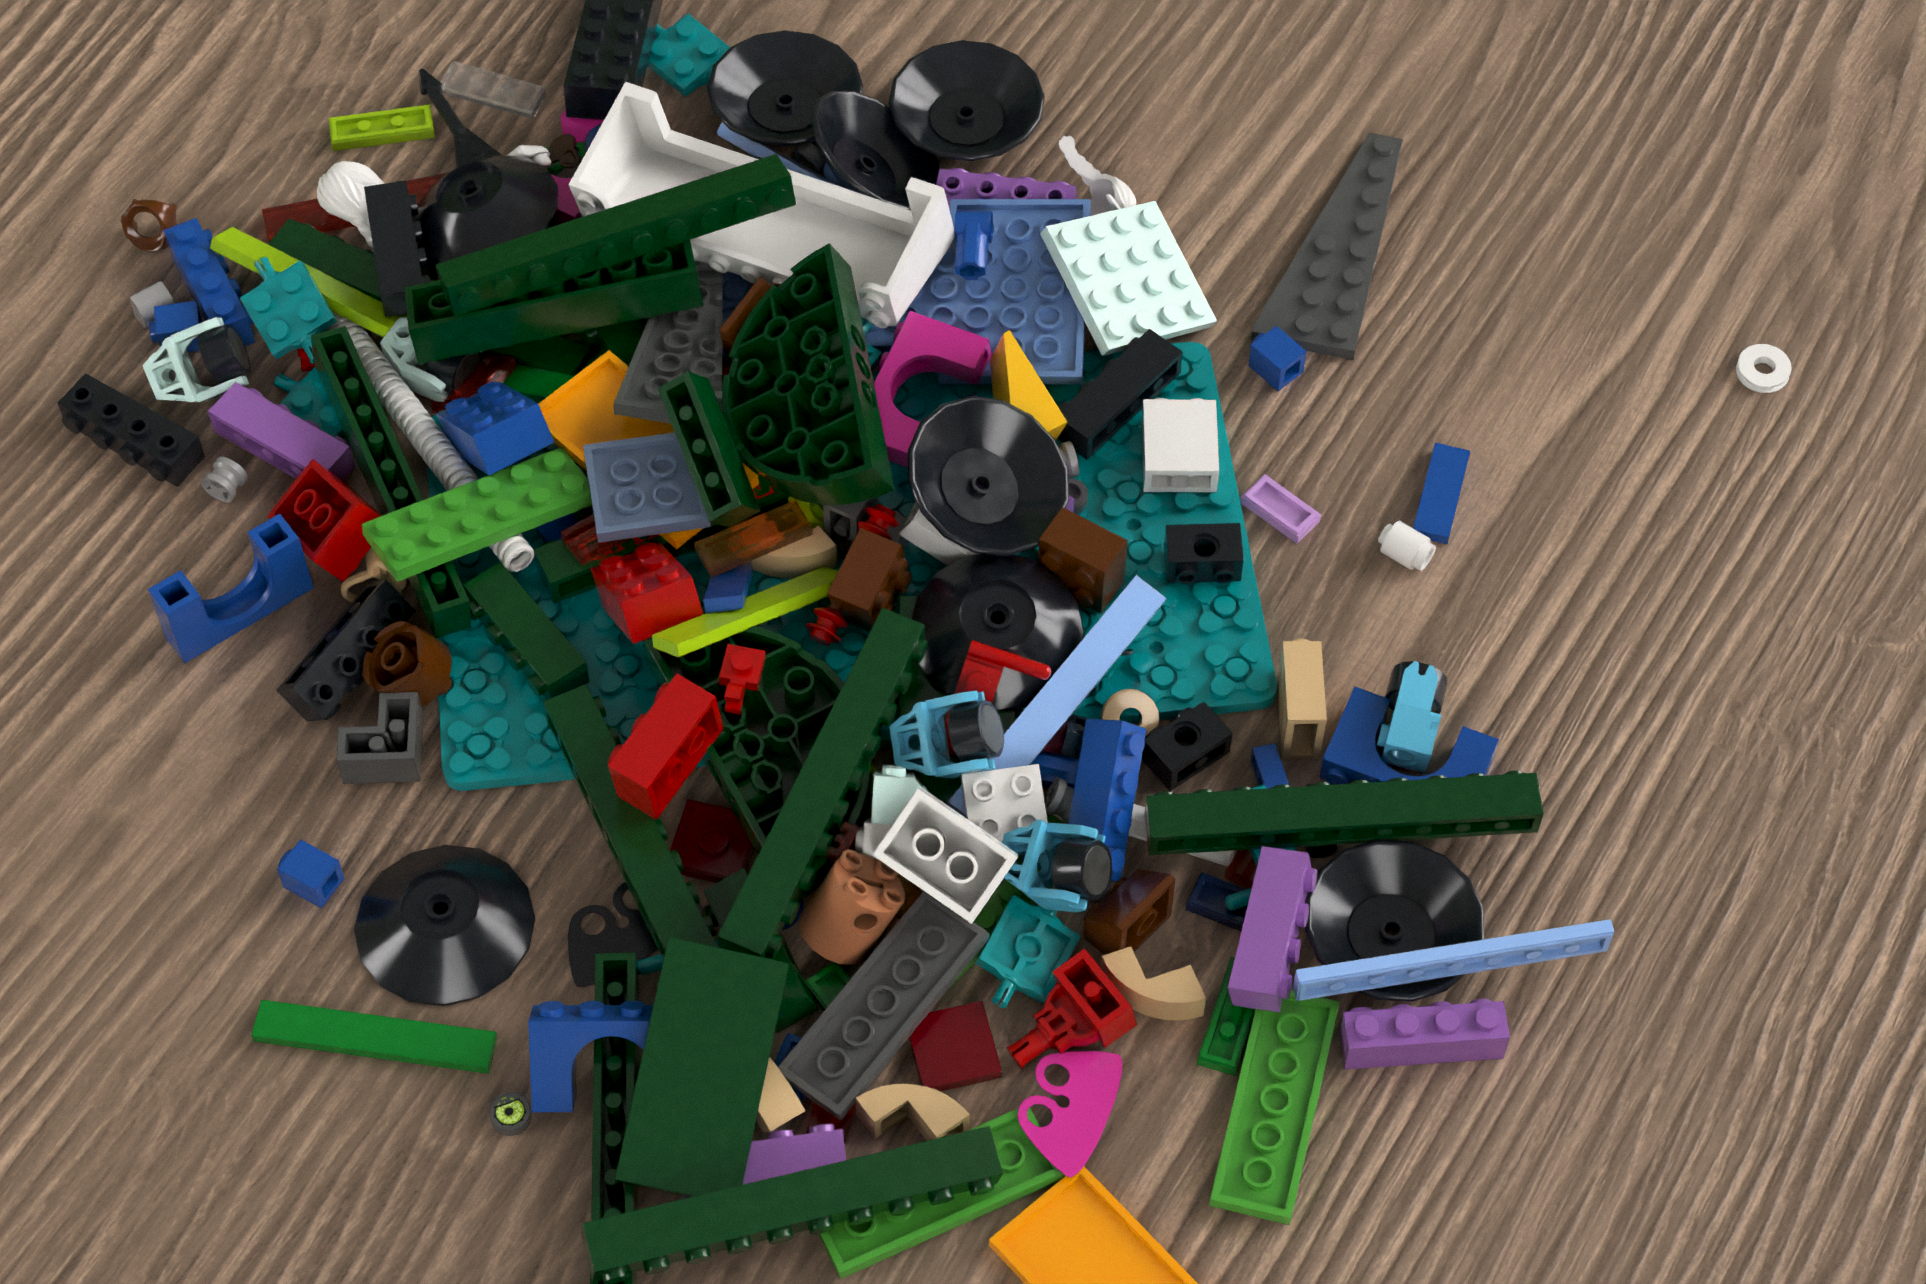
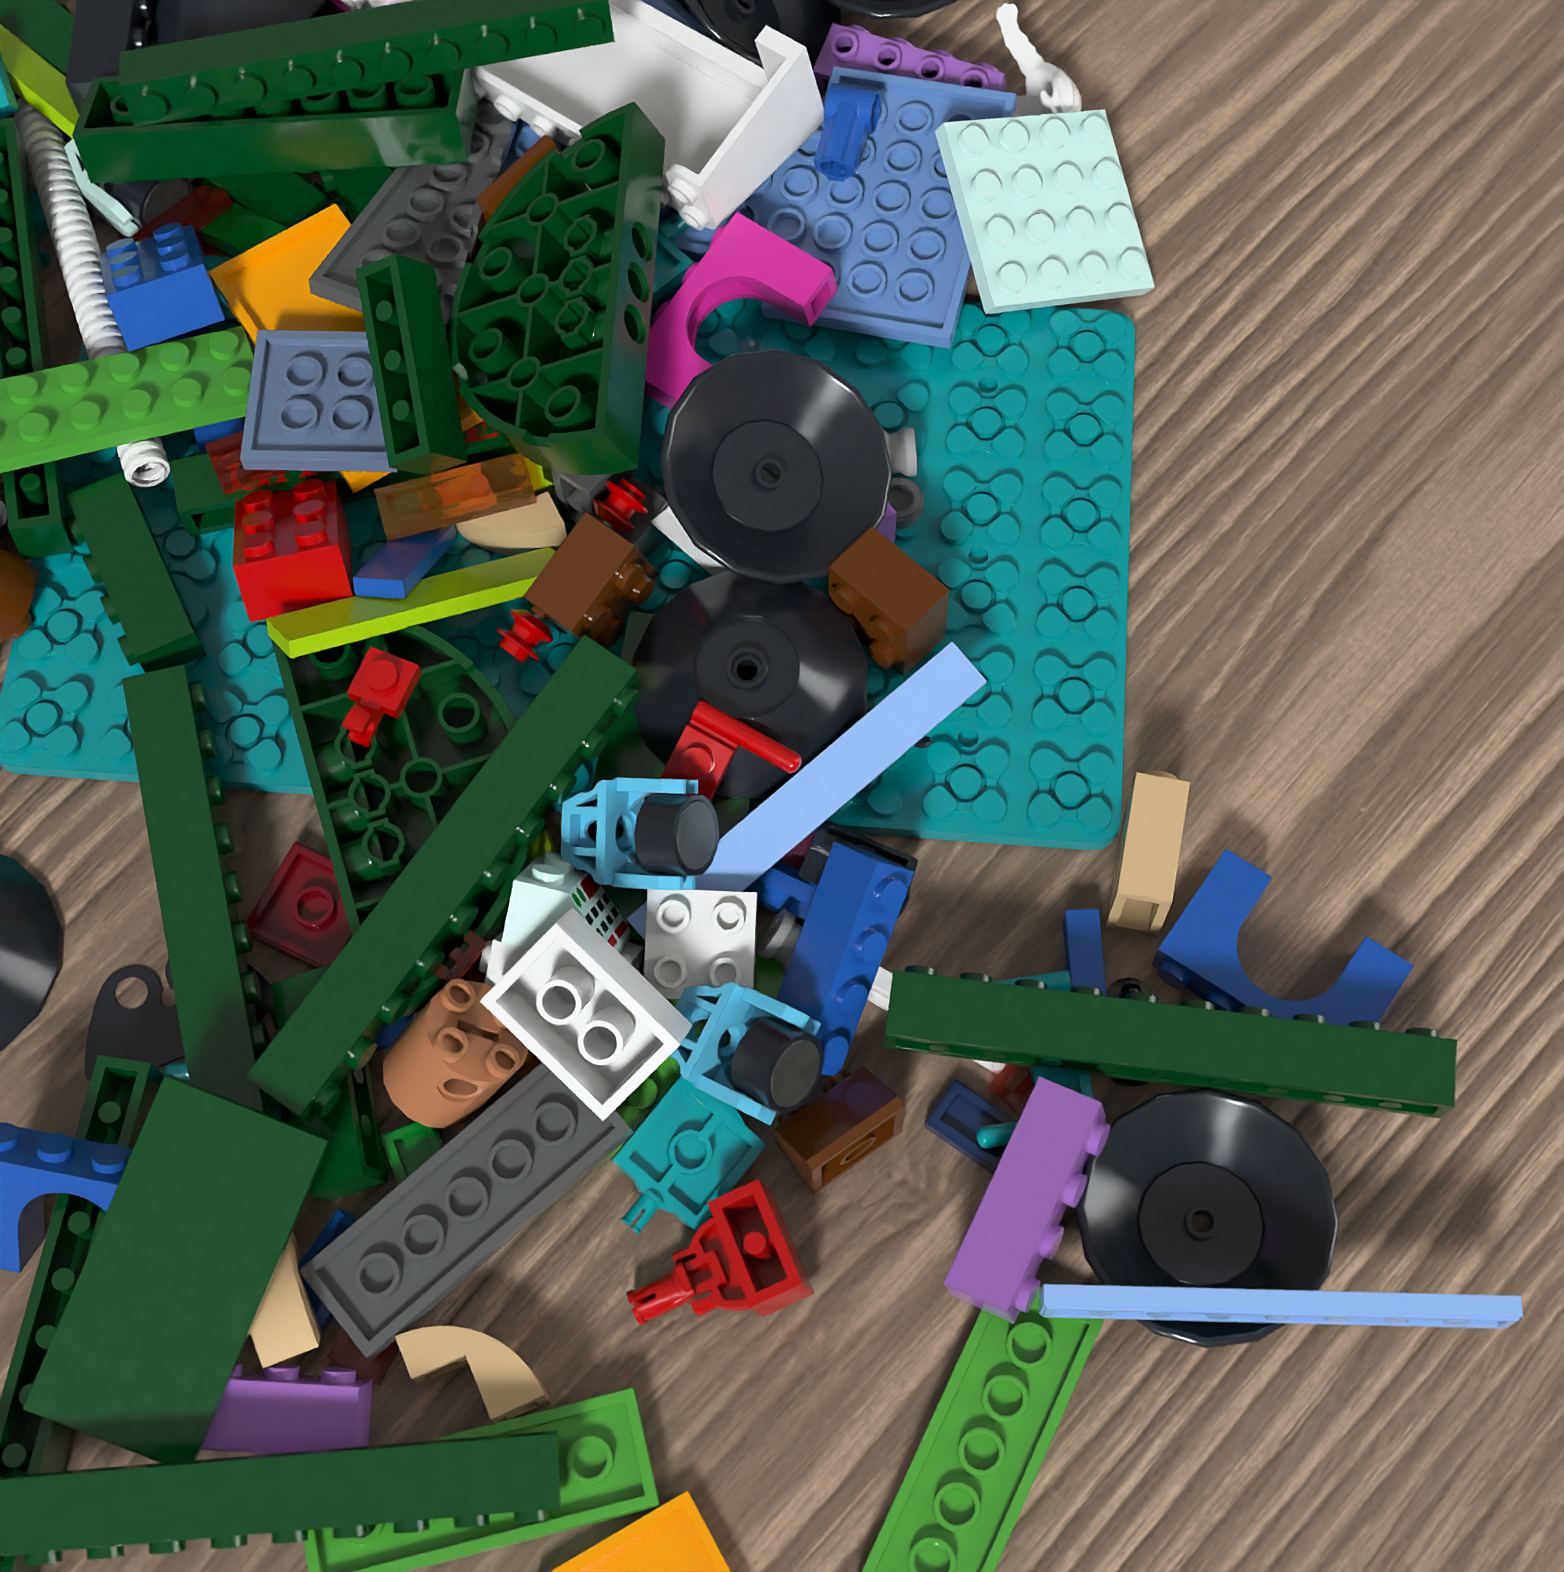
camera: 15 degrees right, 10 degrees up
(665, 745) = (243, 782): red brick -> none
(955, 1048) = (558, 1276): dark red tile -> none
(1020, 385) = (859, 350): yellow slope -> none
(1076, 1128) = (695, 1434): dark pink piece -> none
(1119, 392) = (993, 369): black brick -> none
(1132, 699) = (916, 811): tan piece -> none
(1165, 996) = (866, 1260): tan brick -> none
(1179, 763) = (959, 913): black brick -> none
(1180, 445) = (1062, 456): white brick -> none
(1218, 541) = (1082, 603): black brick -> none
(1226, 1031) = (935, 1327): green tile -> none
(1276, 358) = (1223, 352): blue brick -> none
(1280, 508) = (1183, 565): lavender tile -> none
(1330, 277) = (1317, 255): dark grey wing -> none
(1406, 546) = (1343, 650): white brick -> none
(1416, 700) = (1291, 932): medium azure piece -> none
(1424, 1034) = (1214, 1394): medium lavender brick -> none
(1441, 492) = (1407, 581): blue tile -> none

